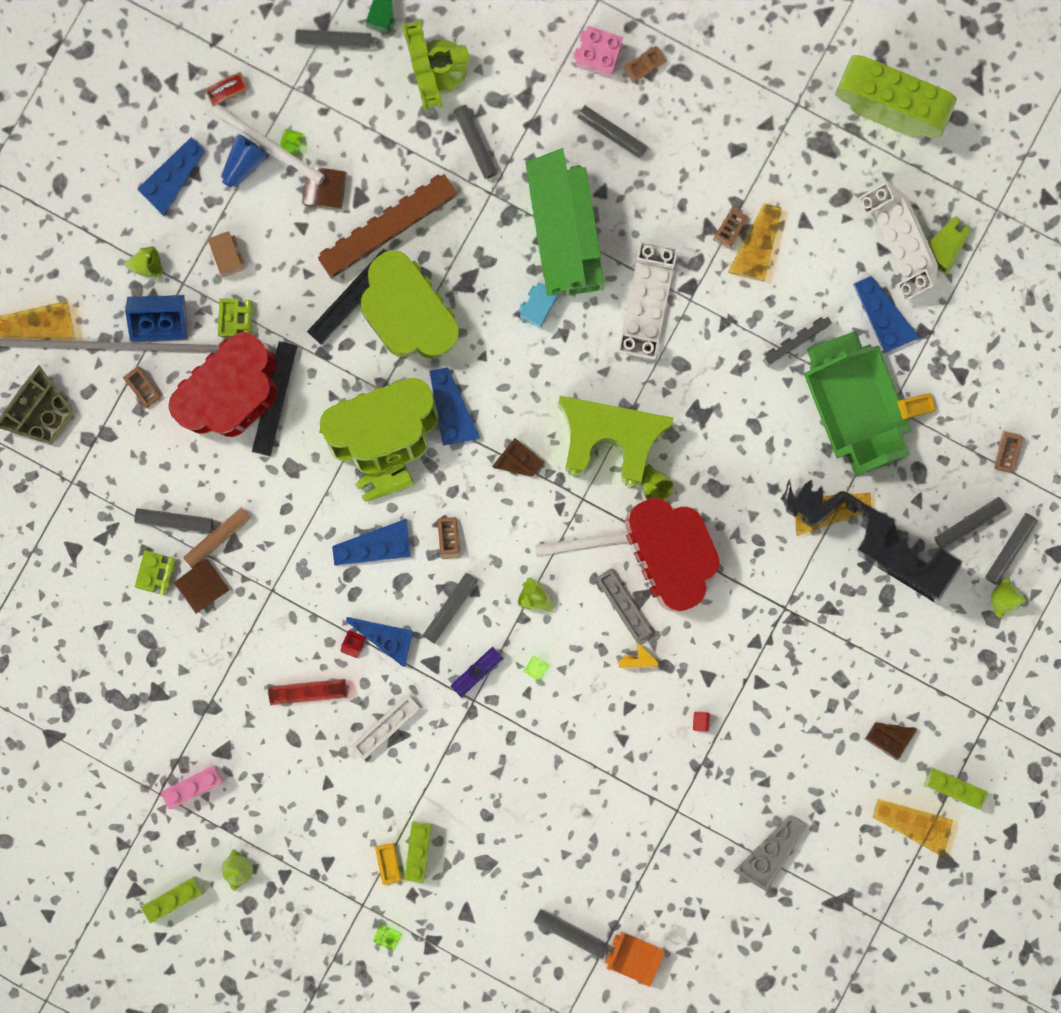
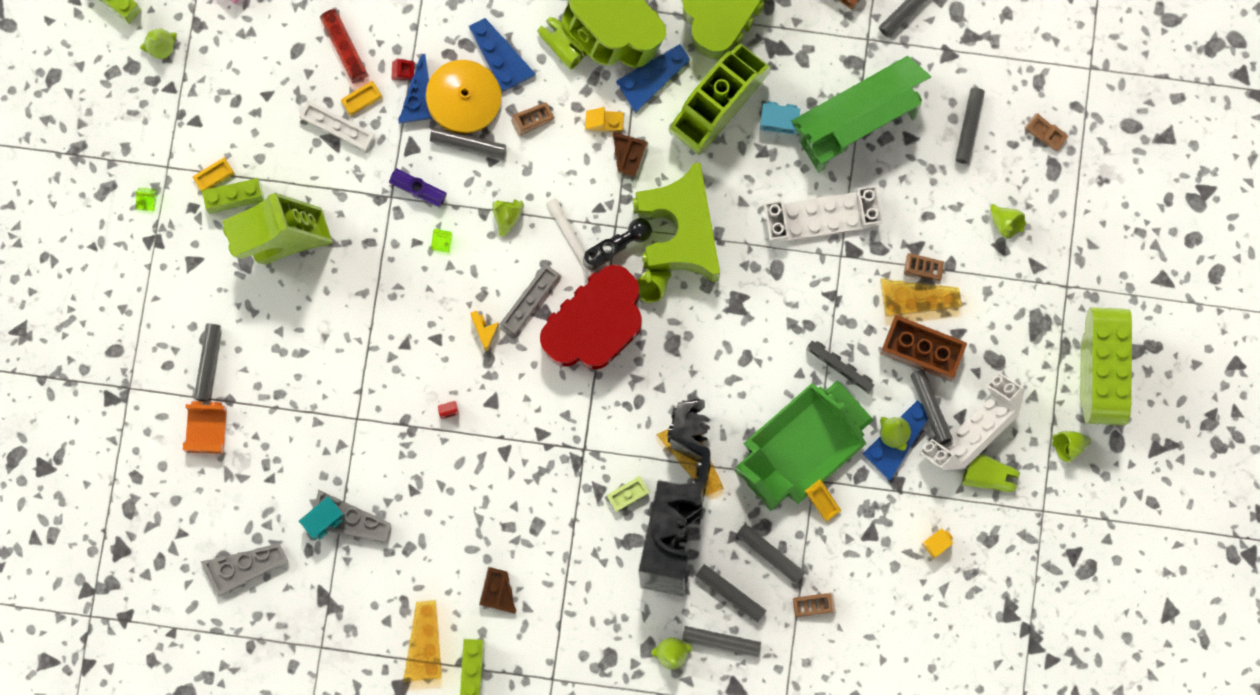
camera: 70 degrees right, 5 degrees down
(366, 693) = (361, 98): none -> yellow tile
(408, 612) = (461, 112): none -> yellow dish
(475, 822) = (276, 229): none -> lime piece
(476, 471) = (603, 120): none -> yellow slope
(503, 353) = (719, 98): none -> lime brick
(598, 51) = (1040, 84): bright pink brick -> none
(598, 478) = (638, 231): none -> black beam
(717, 133) = (1008, 221): none -> lime hat
(765, 877) = (321, 519): none -> teal brick
(780, 975) = (237, 569): none -> light grey wing
(809, 258) = (923, 348): none -> dark orange brick
(843, 583) = (627, 494): none -> yellowish green plate
(867, 272) = (931, 407): none -> dark grey piece
(878, 315) = (895, 432): none -> lime hat
(947, 473) = (770, 553): none -> dark grey piece
(948, 160) = (1070, 444): none -> lime hat
(993, 316) = (938, 543): none -> yellow brick

